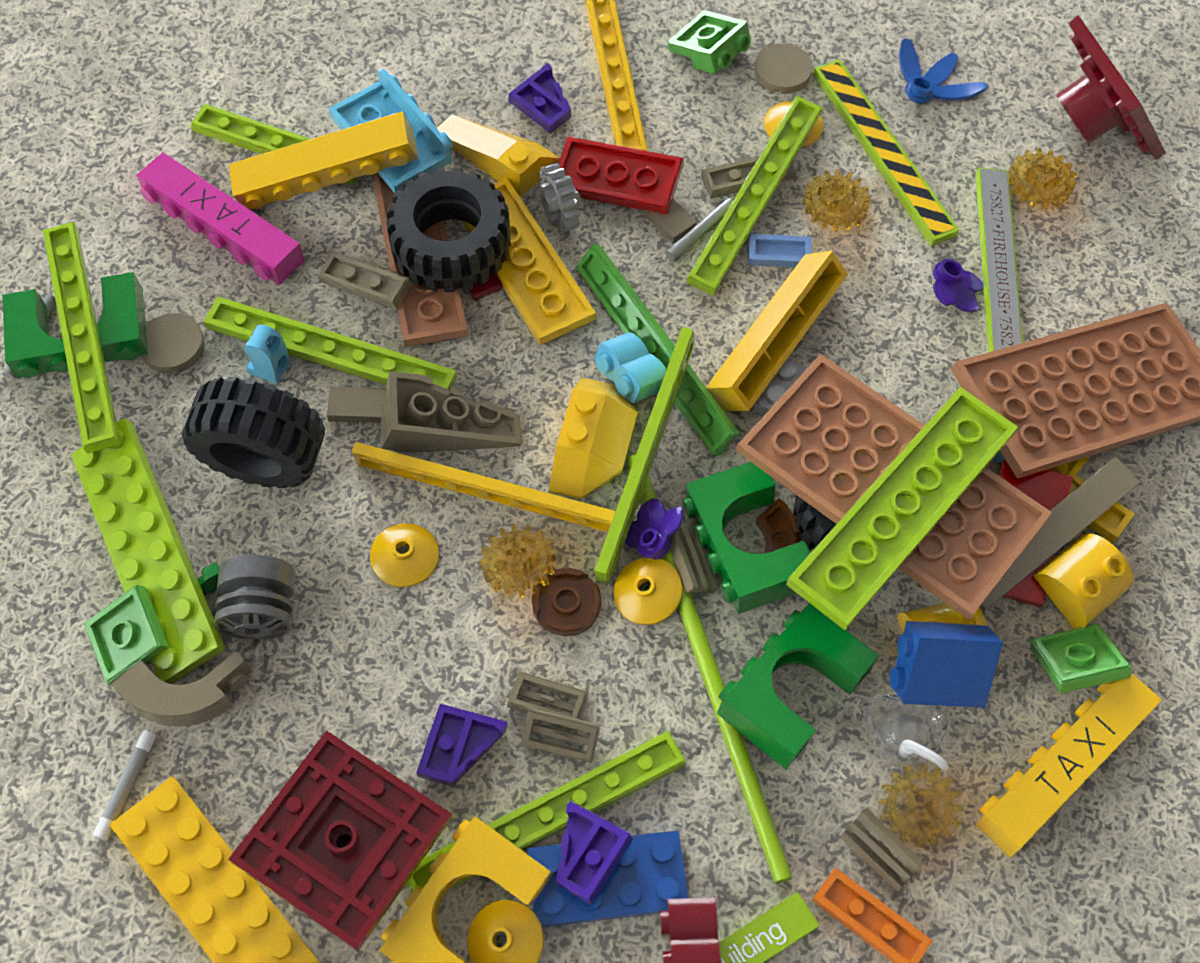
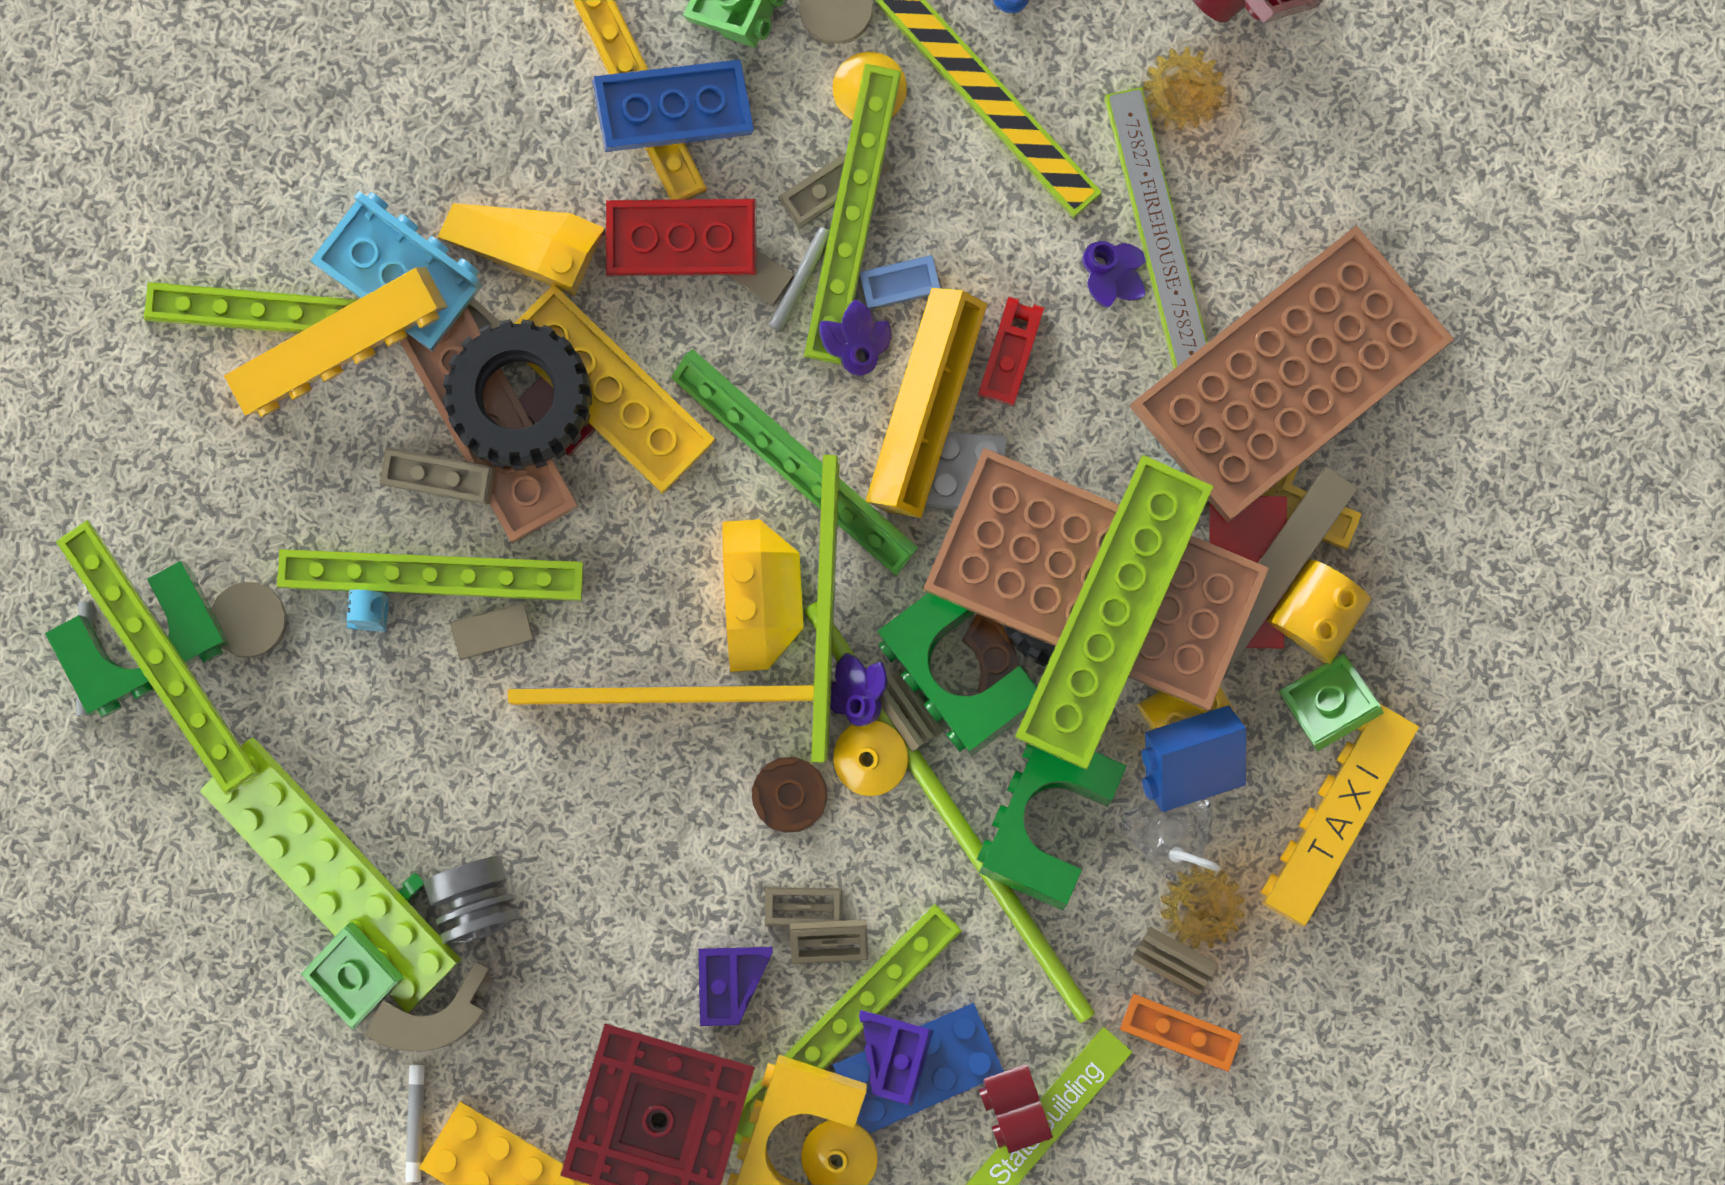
camera: 15 degrees left, 20 degrees up
(220, 219) = (236, 442): dark pink brick -> none
(253, 432) = (404, 726): black tyre -> none
(406, 568) = (615, 807): yellow dish -> none
(432, 418) = (578, 627): dark tan wedge -> none
(535, 561) = (710, 776): clear yellow gear -> none
(542, 99) = (556, 150): dark purple wing -> none
(559, 197) = (627, 303): light grey gear -> none
(630, 367) = (775, 499): medium azure brick -> none
(640, 88) = (672, 105): none -> blue plate
(733, 272) = (856, 333): none -> dark purple plate
(836, 200) = (962, 204): clear yellow gear -> none
(856, 319) = (1010, 353): none -> red plate

